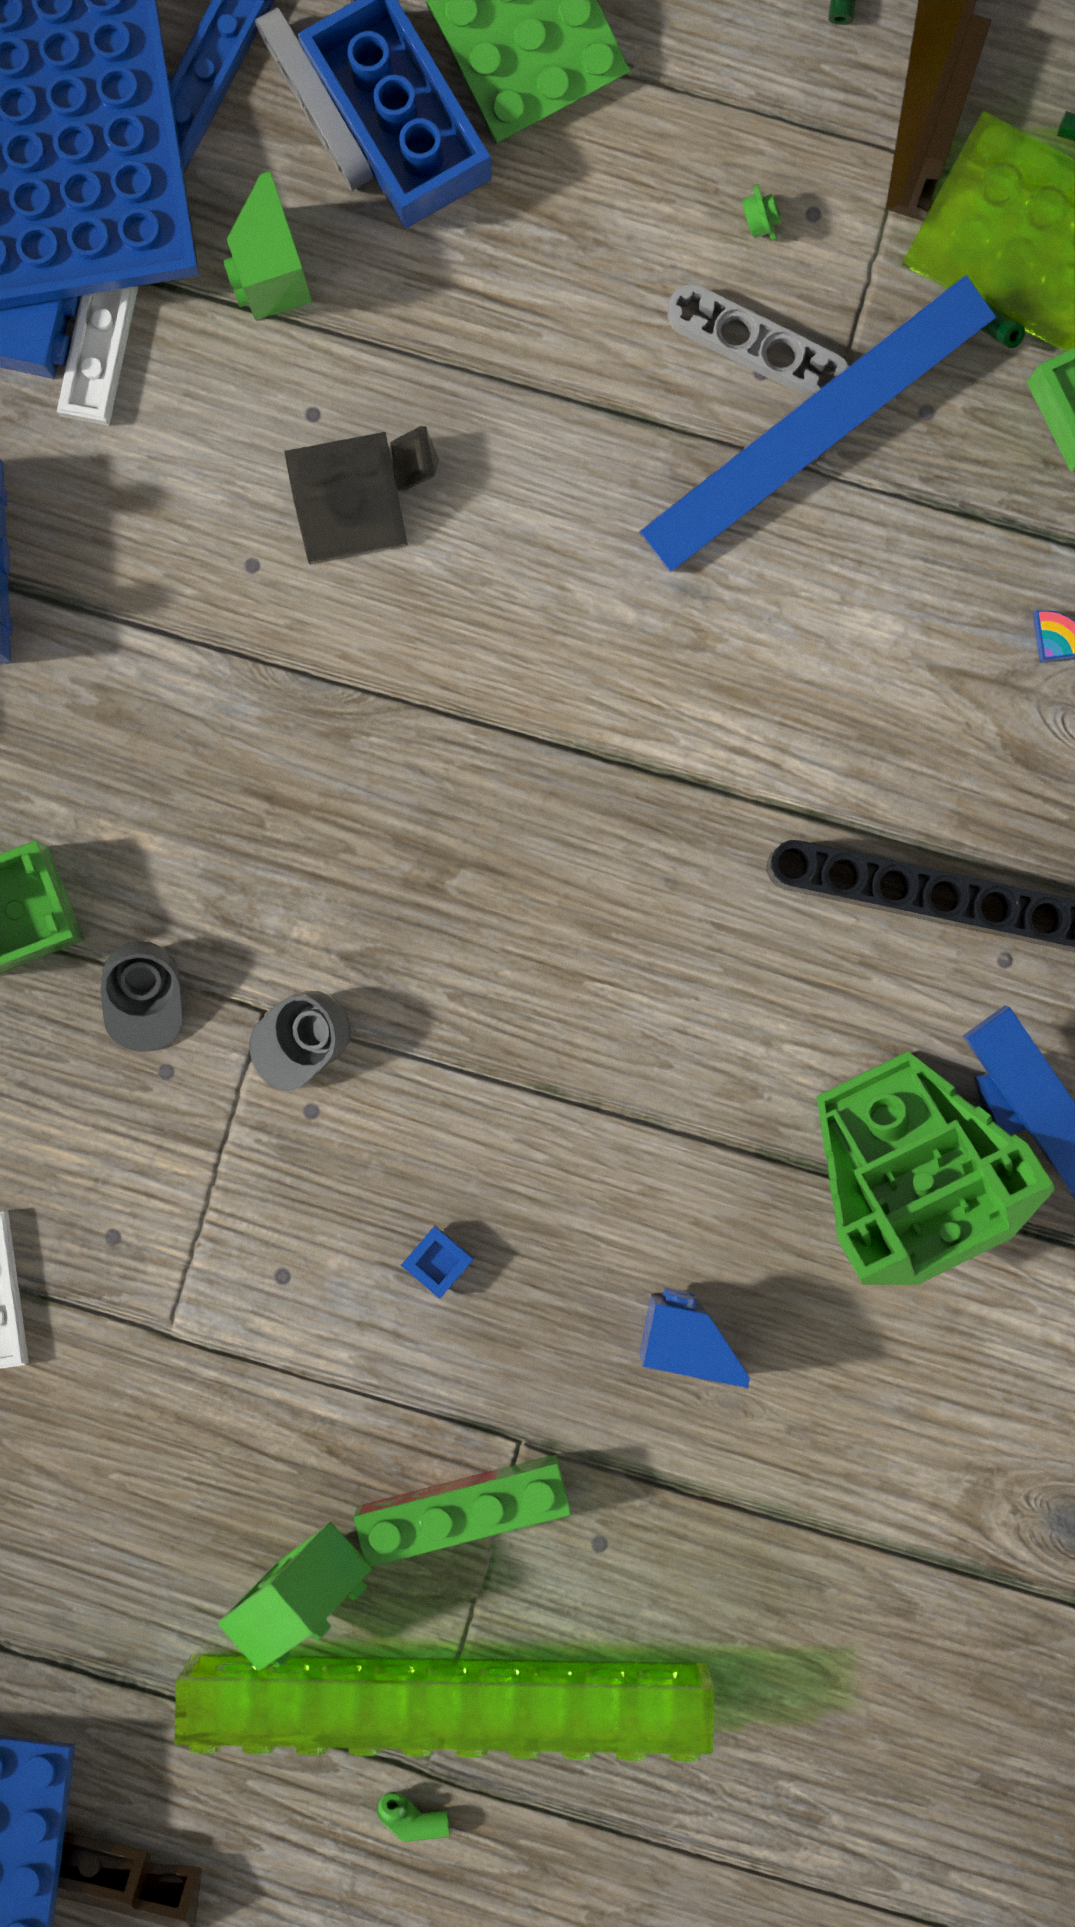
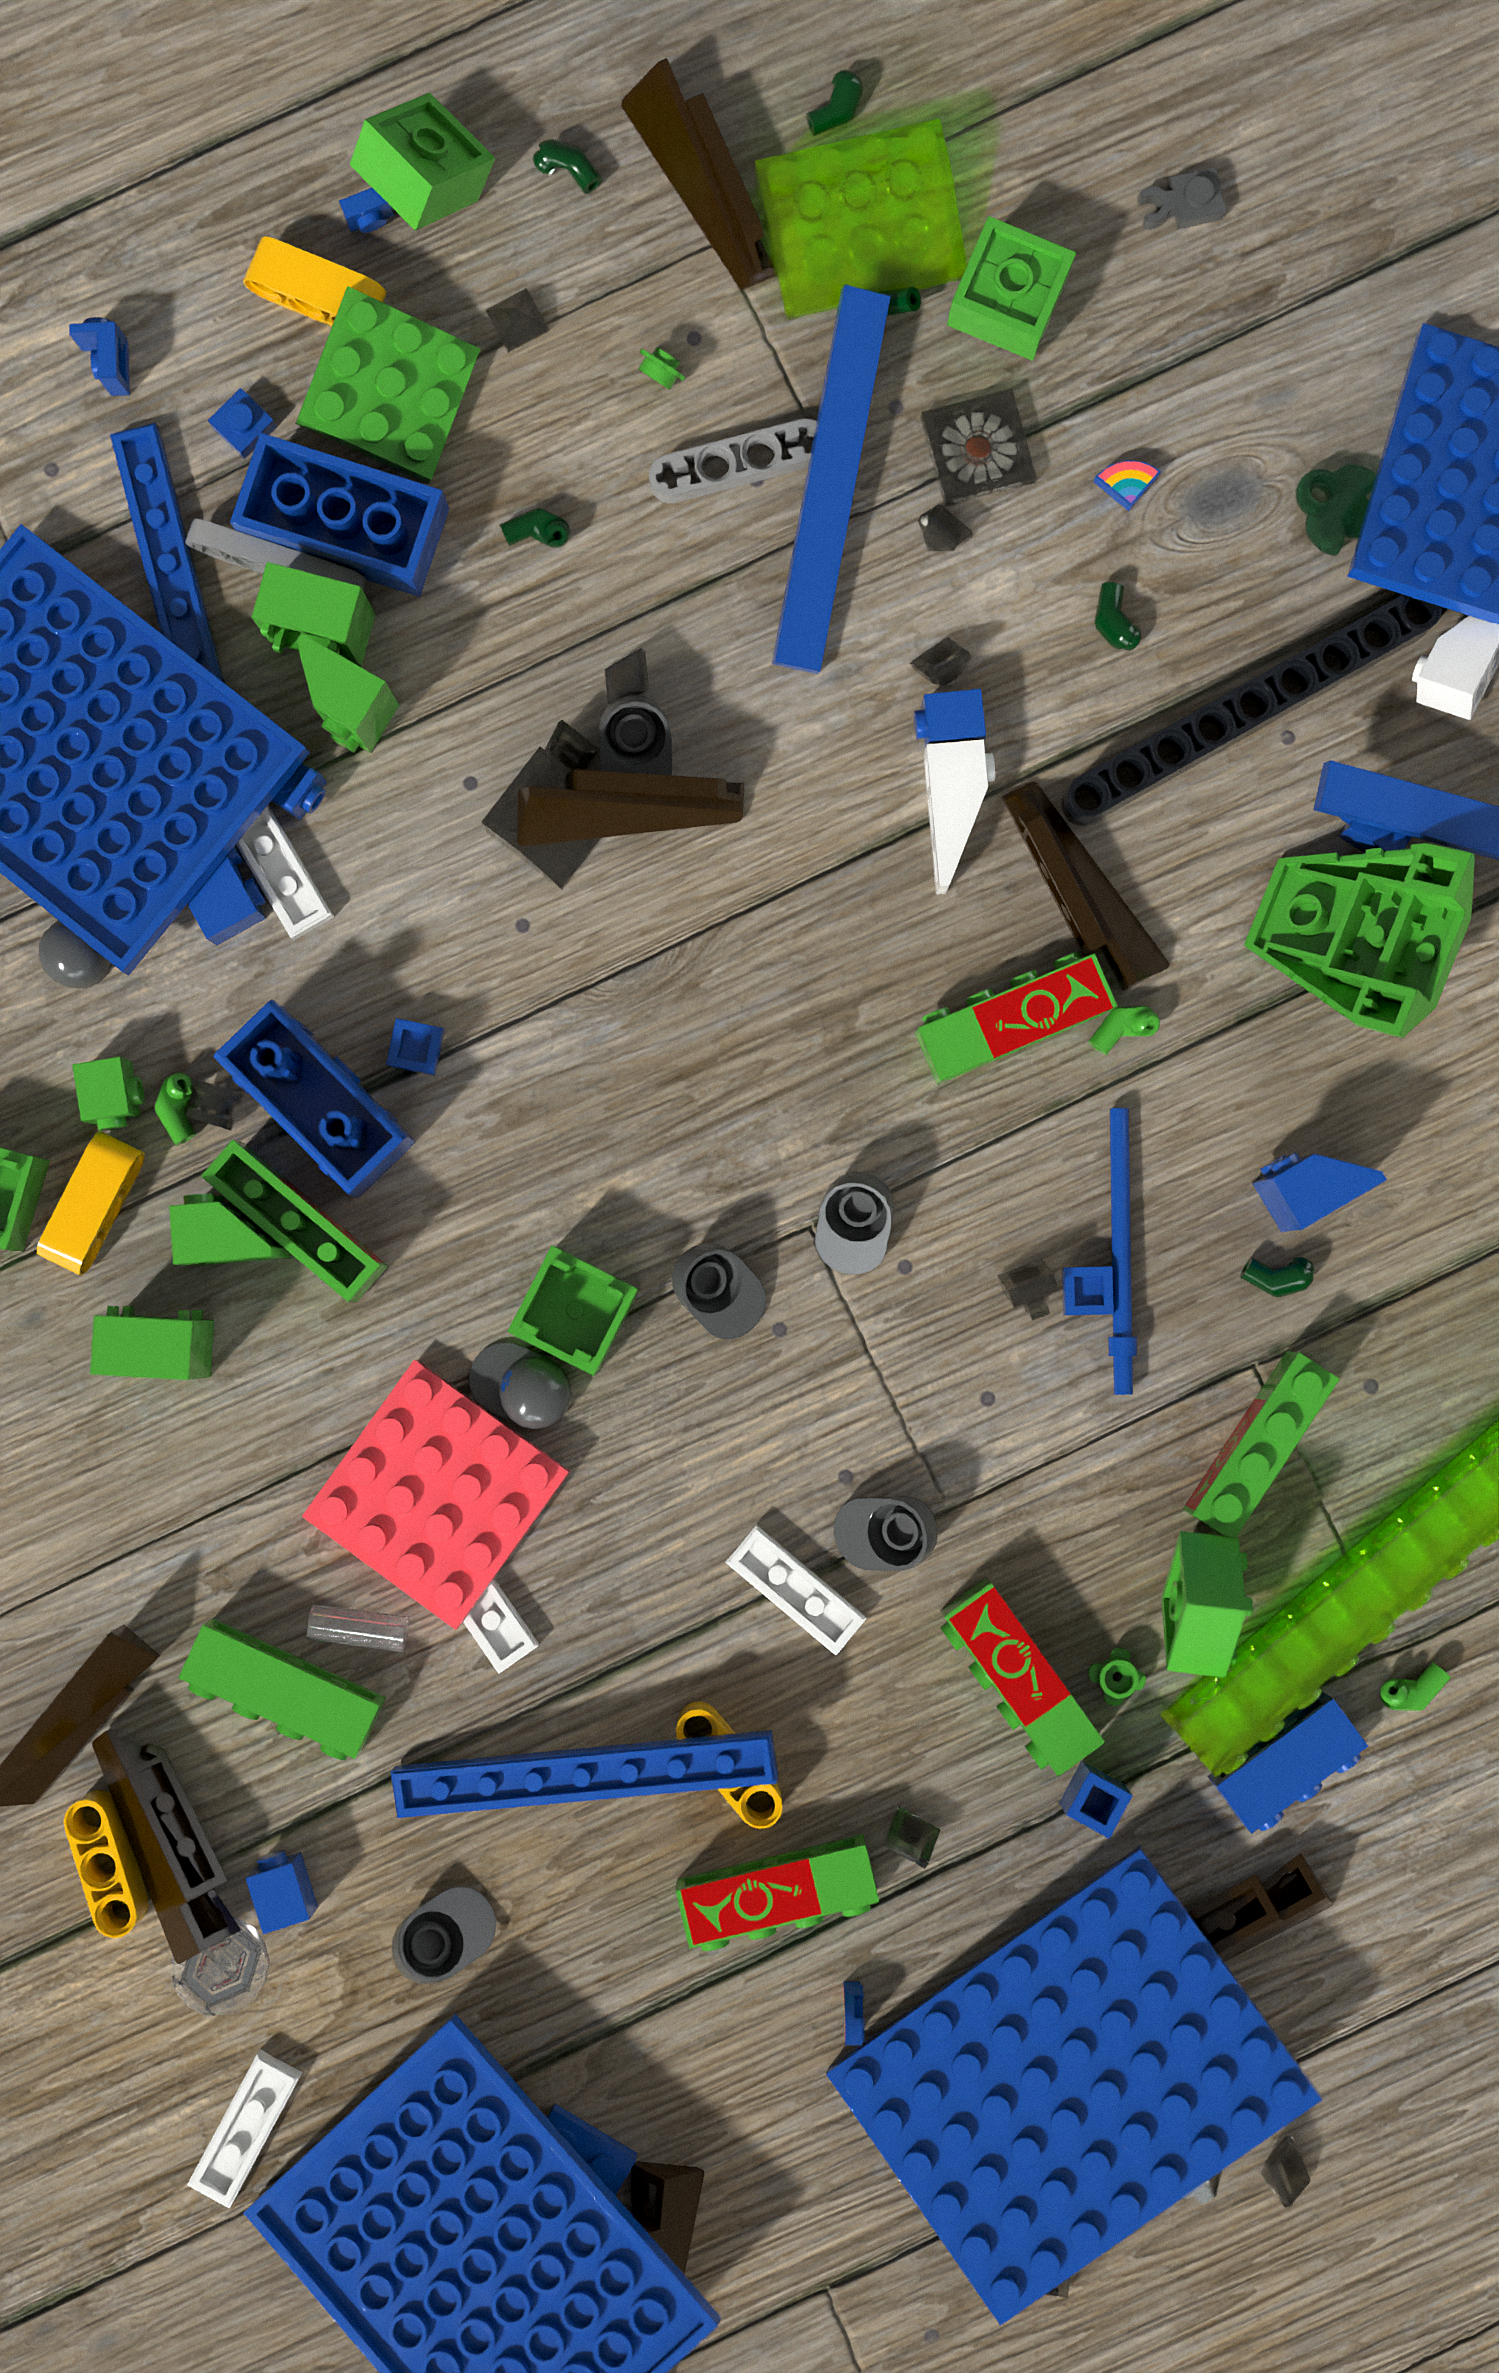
camera: 45 degrees left, 0 degrees up
(72, 1675) = (1095, 1799): none -> blue brick
(76, 586) = (415, 1047): none -> blue plate
(101, 1310) = (885, 1532): none -> dark grey cap
(104, 1523) = (1021, 1676): none -> brick
(169, 302) = (301, 792): none -> blue bracket
(172, 1603) = (1130, 1677): none -> bright green plate
(256, 1789) = (1291, 1764): none -> blue brick
(303, 165) = (316, 606): none -> bright green container
(392, 1215) = (1028, 1287): none -> clear smoke tile
(412, 539) = (624, 804): none -> dark brown wedge
(428, 1329) = (1122, 1344): none -> blue bar
(464, 502) = (635, 737): none -> dark grey cap
(509, 441) = (627, 676): none -> clear smoke slope
(551, 255) = (538, 525): none -> dark green arm
(574, 989) = (1015, 1018): none -> brick
(600, 1394) = (1282, 1281): none -> dark green arm
(662, 1072) = (1122, 1023): none -> bright green arm
(682, 75) = (517, 320): none -> clear smoke slope
(688, 769) = (955, 788): none -> white slope
(725, 936) = (1082, 891): none -> dark brown wedge
(739, 703) = (950, 717): none -> blue brick
(775, 651) = (942, 662): none -> clear smoke slope
(874, 544) = (943, 530): none -> clear smoke slope
(943, 740) = (1112, 622): none -> dark green arm
(963, 503) = (978, 447): none -> clear smoke tile

